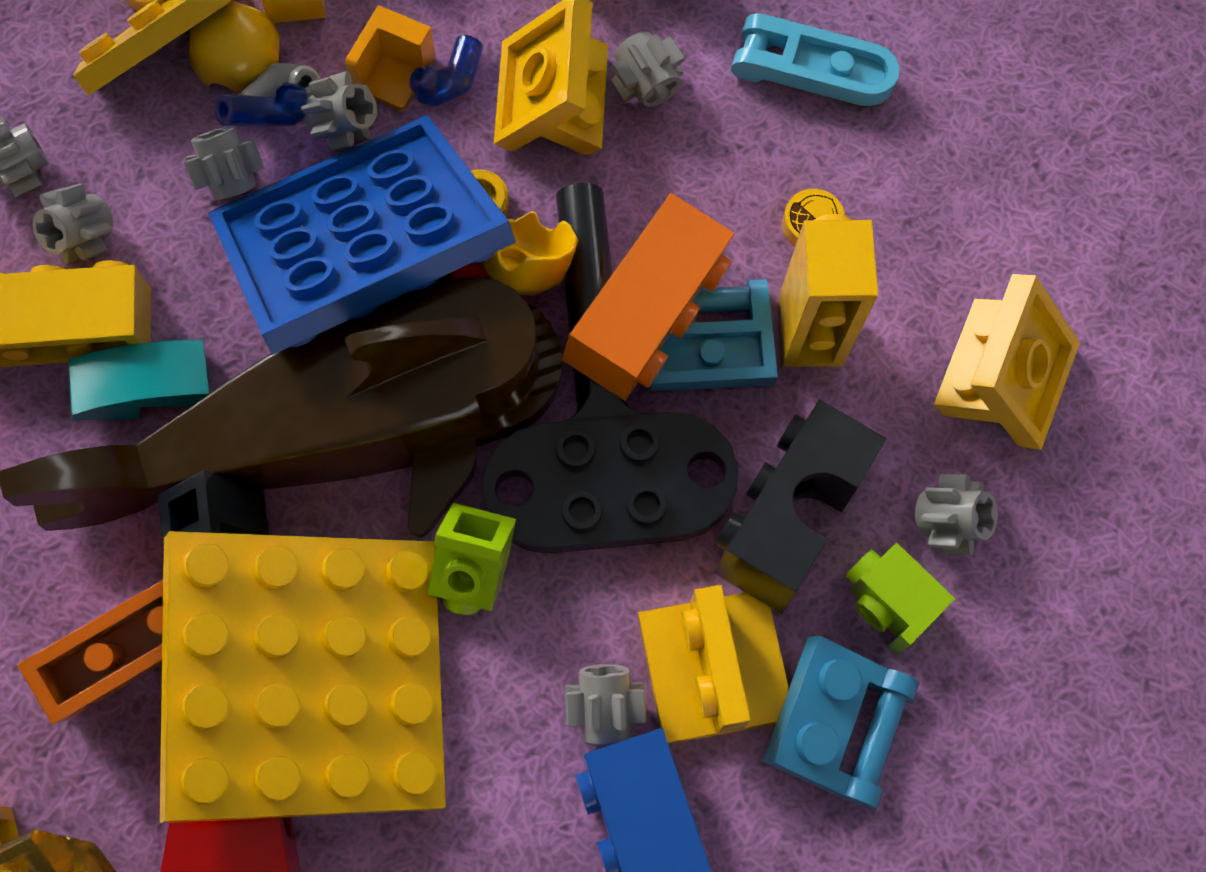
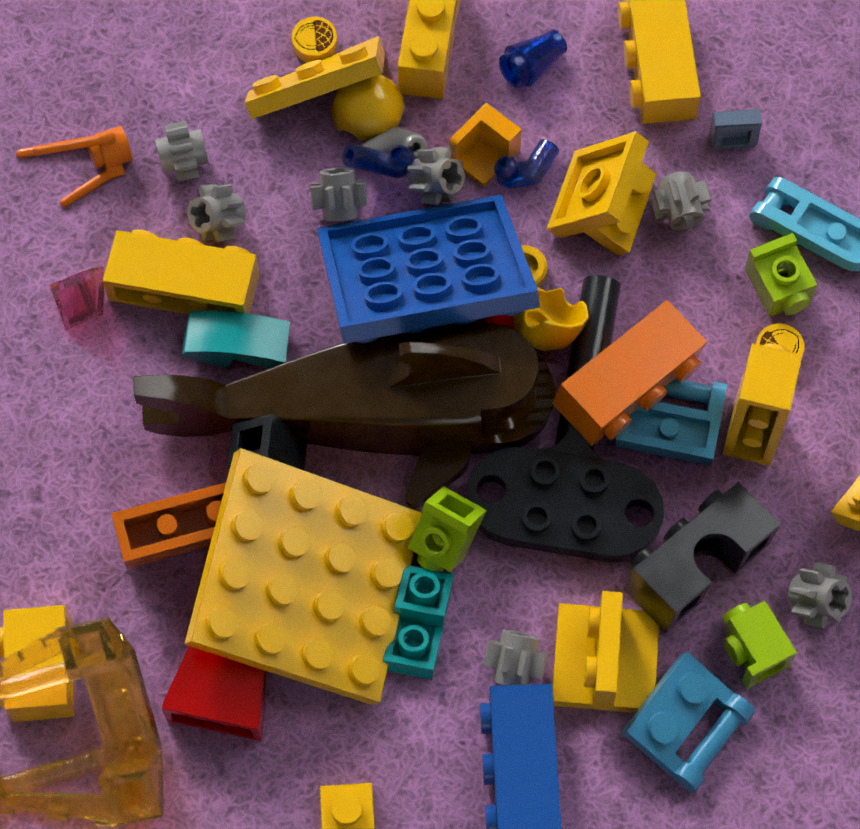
camera: 20 degrees right, 5 degrees down
(469, 674) = (422, 611): none -> teal slope
(787, 149) = (777, 292): none -> lime brick

